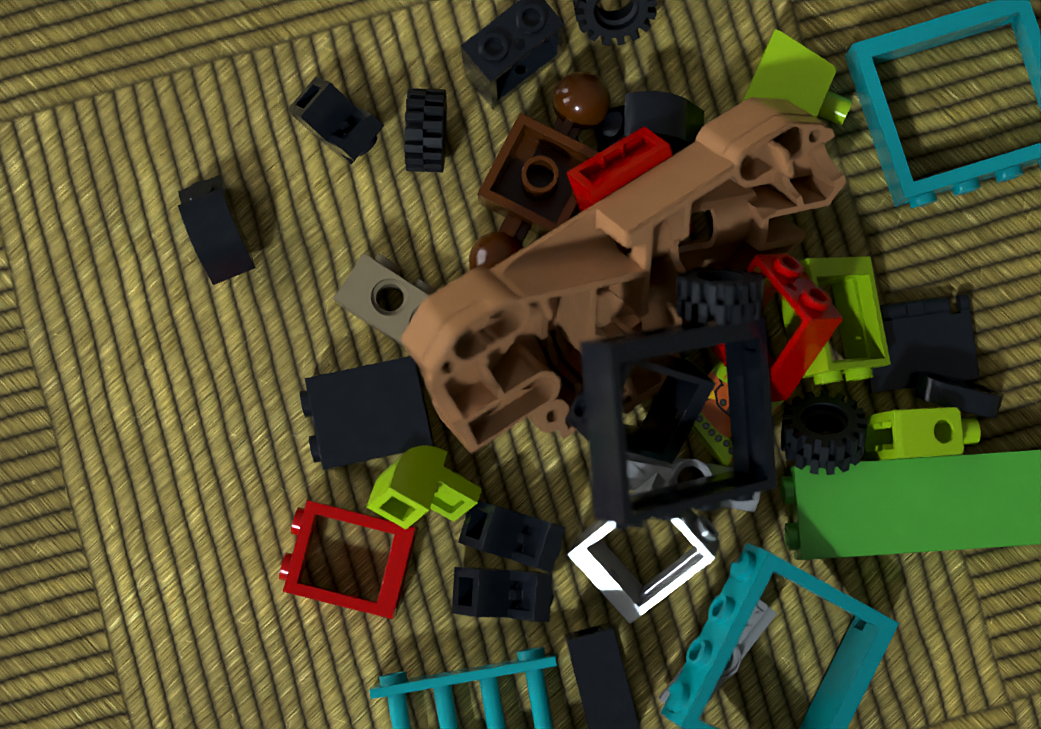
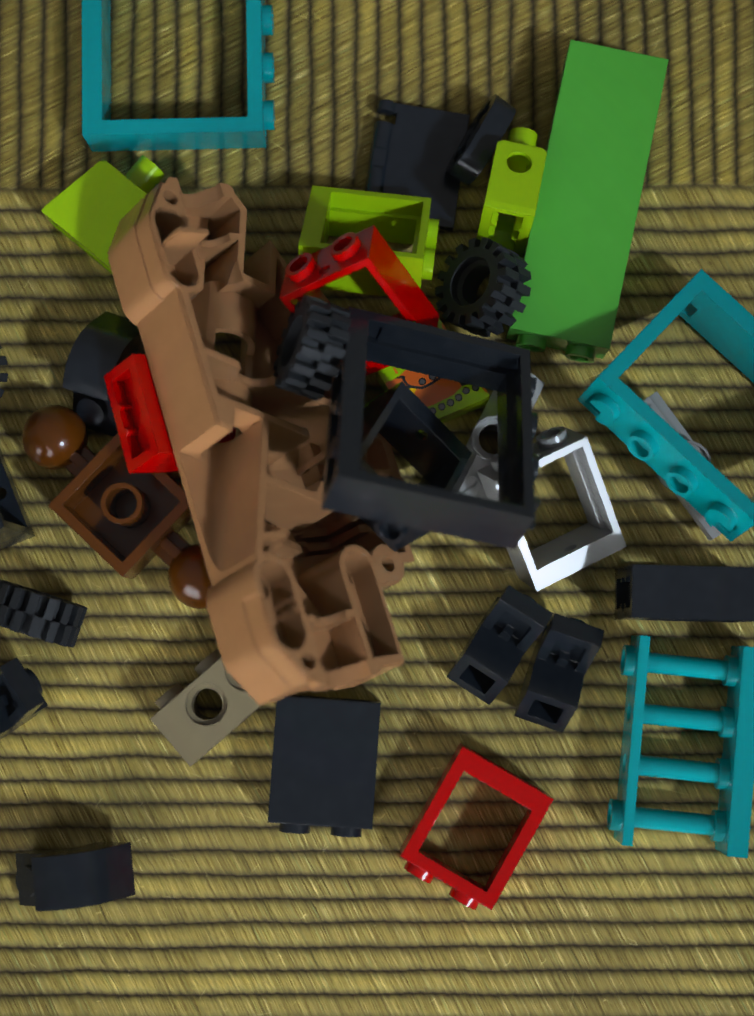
camera: 75 degrees left, 0 degrees up
(419, 484) = (417, 728): lime brick -> none

